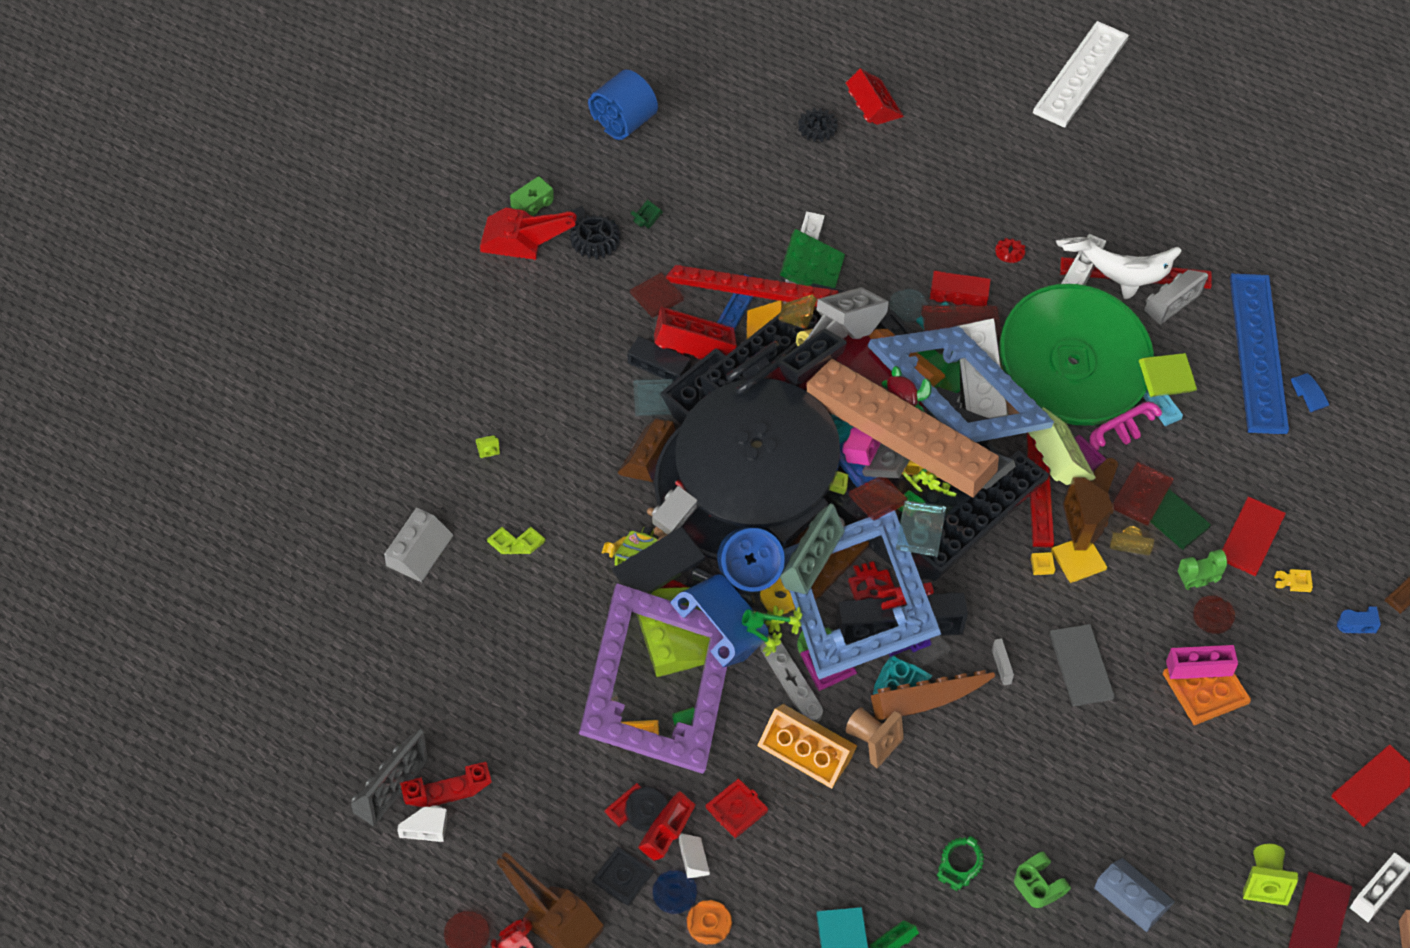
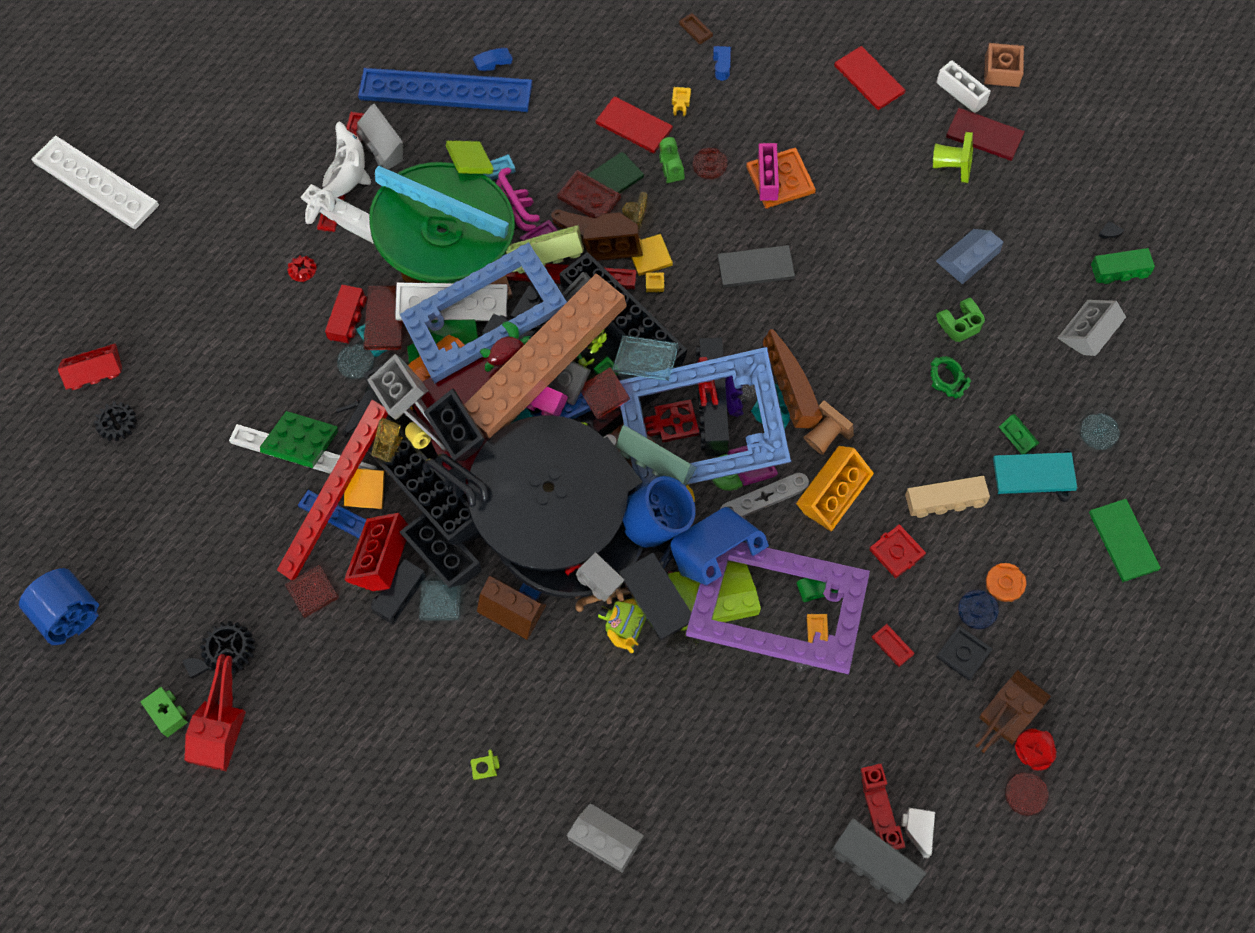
camera: 80 degrees left, 10 degrees up
(508, 544) = (605, 748): lime tile -> none
(644, 807) = (900, 628): black tile -> none
(646, 214) = (207, 594): dark green bracket -> none
(667, 827) = (920, 610): red slope -> none
(693, 856) = (946, 590): white slope -> none
(756, 619) = (726, 514): plant -> none
(807, 859) = (947, 496): none -> tan brick
(1002, 662) = (754, 324): light grey tile -> none
(1091, 352) = (441, 202): none -> medium azure plate

